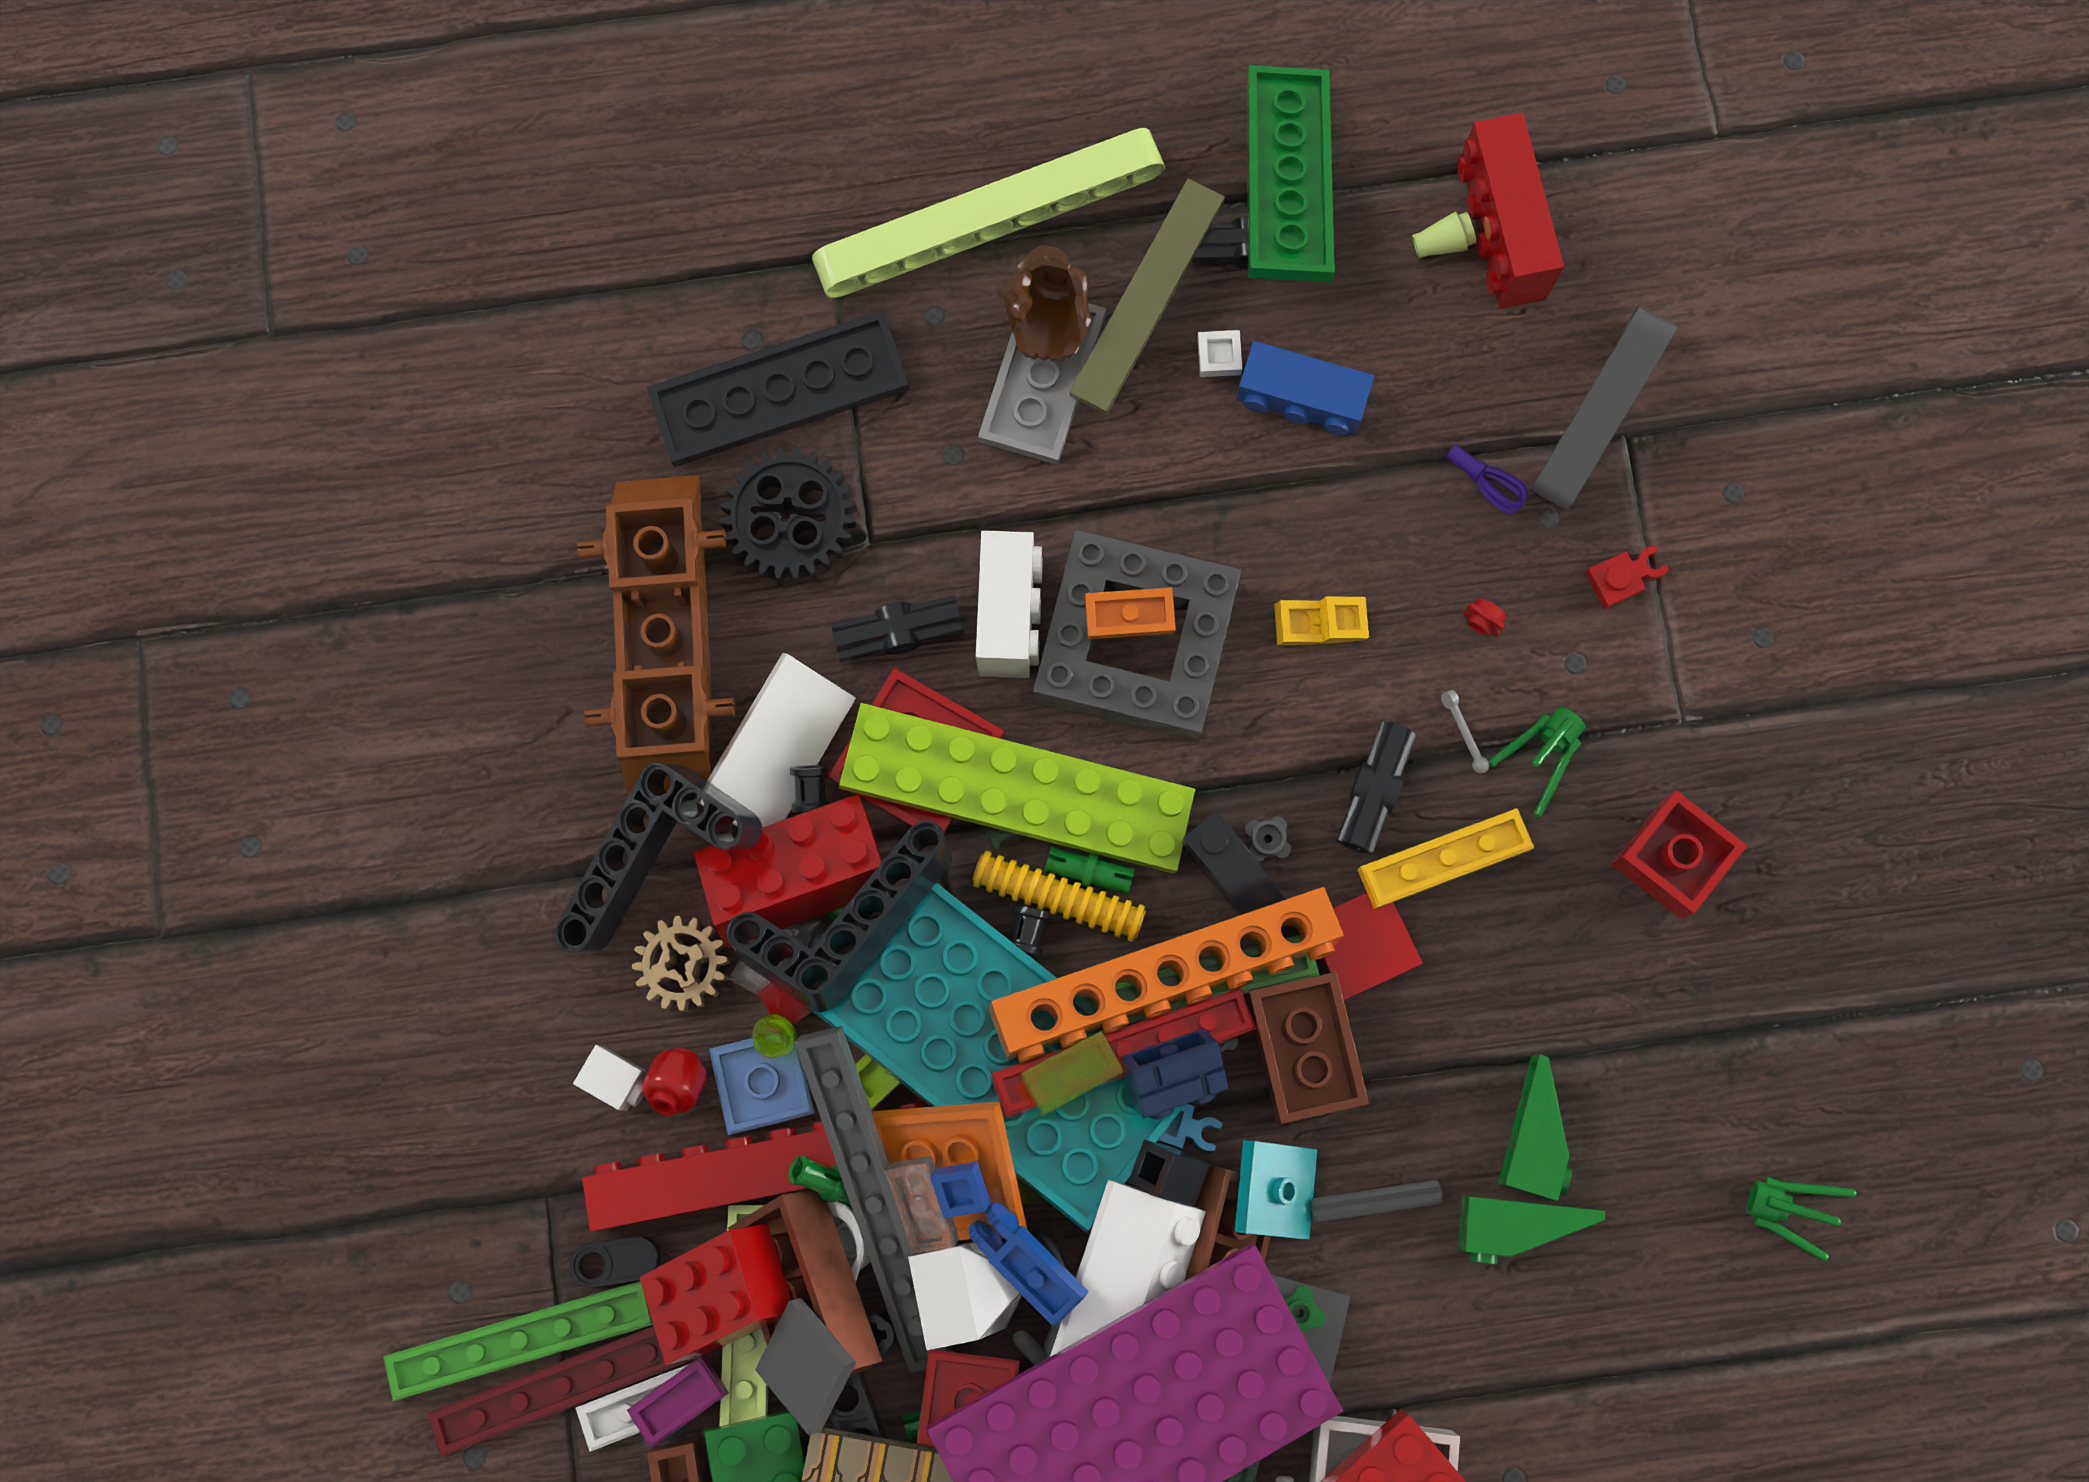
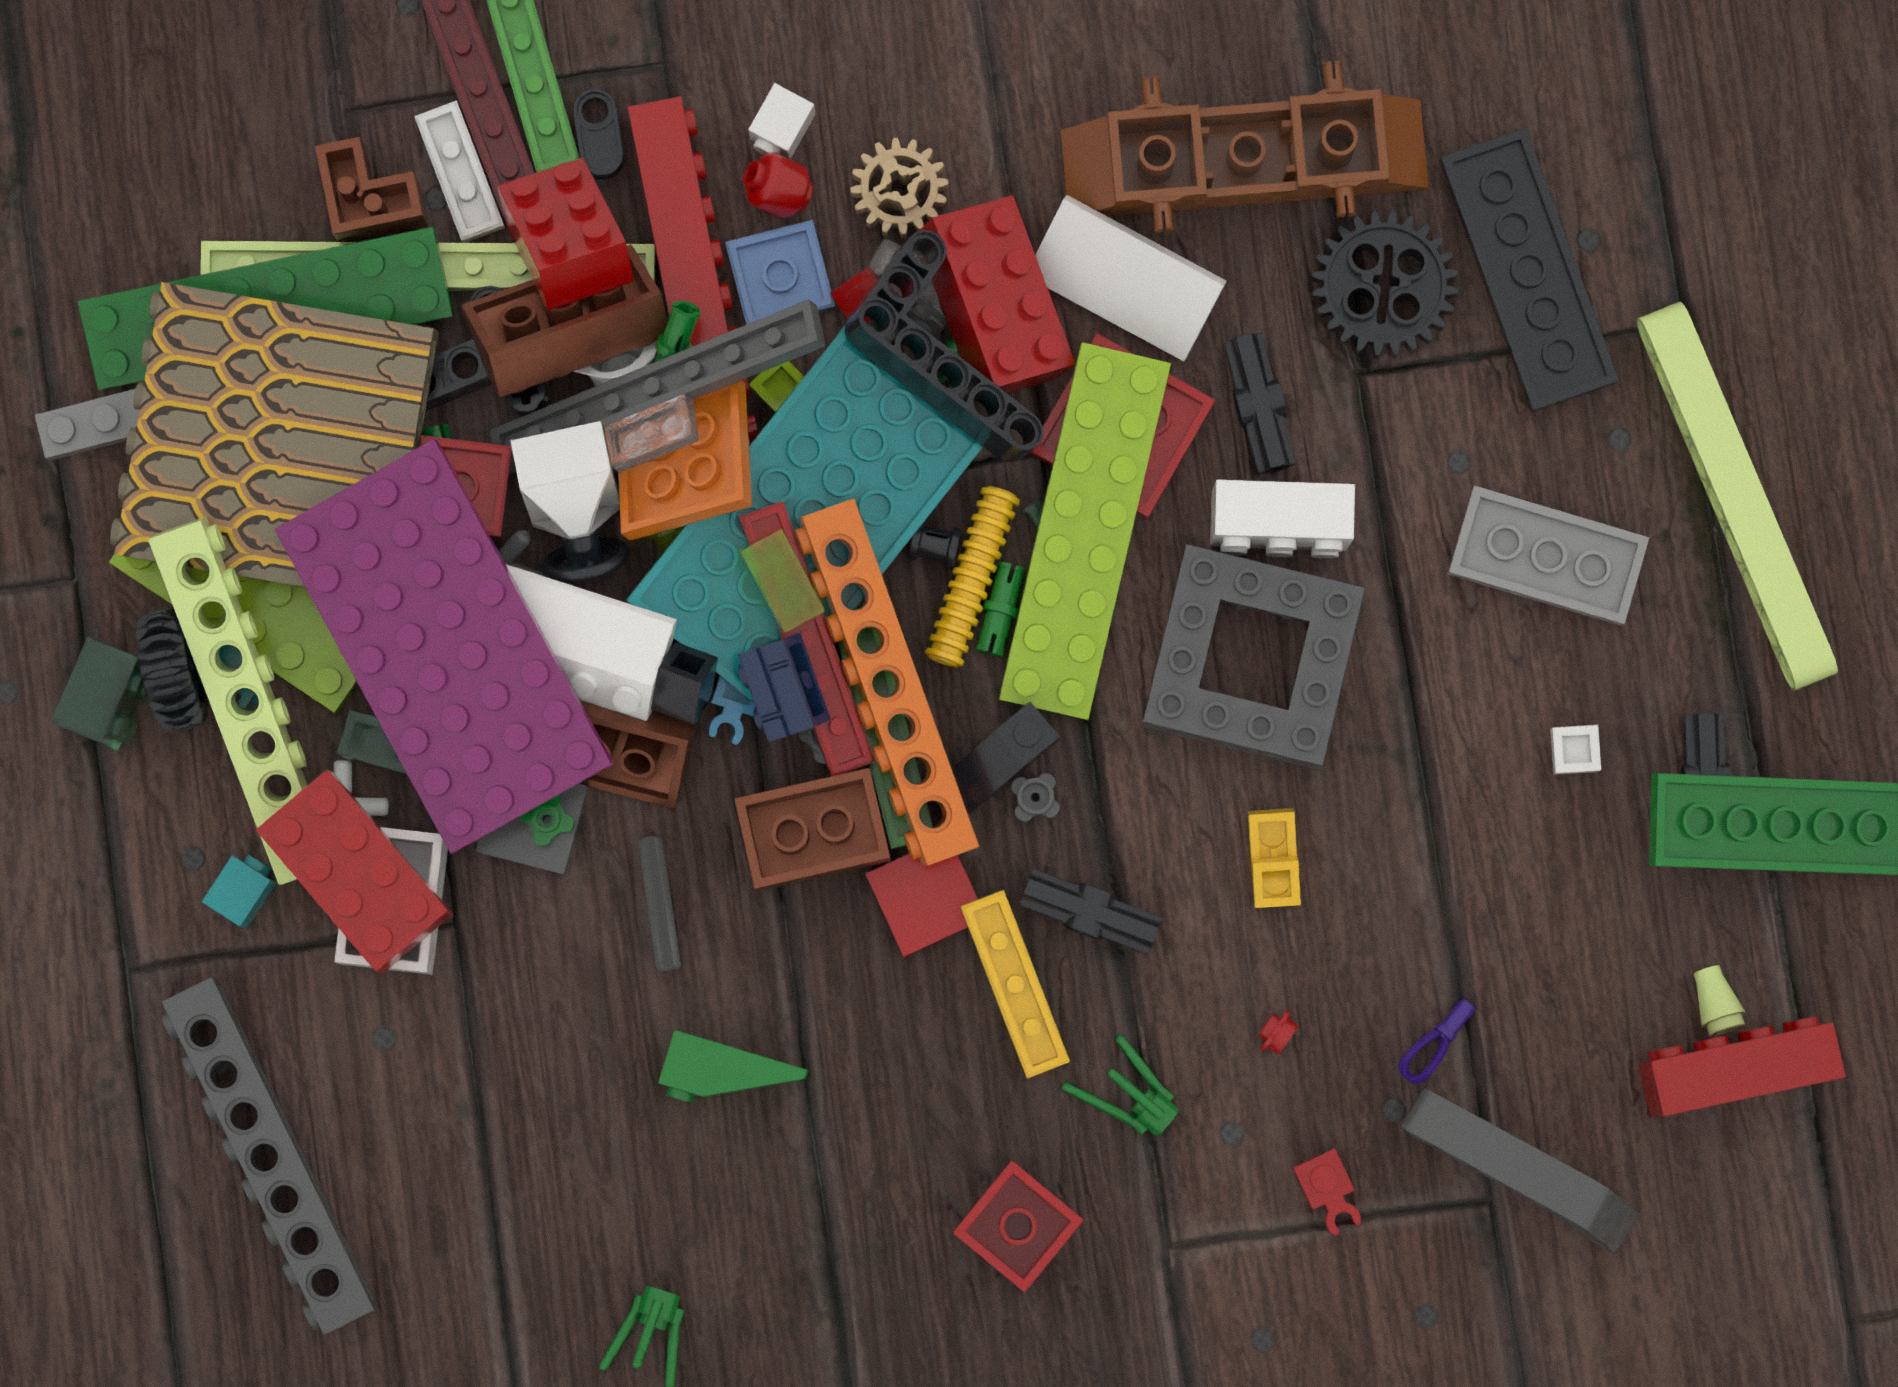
camera: 85 degrees right, 5 degrees up
(644, 847) = (1019, 144): black beam -> none
(677, 1401) = (461, 200): magenta tile -> none
(773, 1036) = (823, 283): clear neon green plate -> none
(805, 1366) = (495, 320): dark grey tile -> none
(809, 787) = (1084, 314): black bush -> none
(960, 1189) = (665, 469): blue plate -> none
(1027, 1264) = (593, 537): blue hinge -> none
(1048, 305) = (1617, 556): reddish brown hair -> none
(1130, 613) = (1267, 642): orange plate -> none
(1147, 296) = (1634, 666): olive tile -> none
(1275, 1190) = (669, 797): plate -> none
(1304, 388) = (1534, 841): blue brick -> none
(1451, 700) = (1187, 995): light grey hinge -> none
(1513, 1227) = (633, 1037): green slope -> none

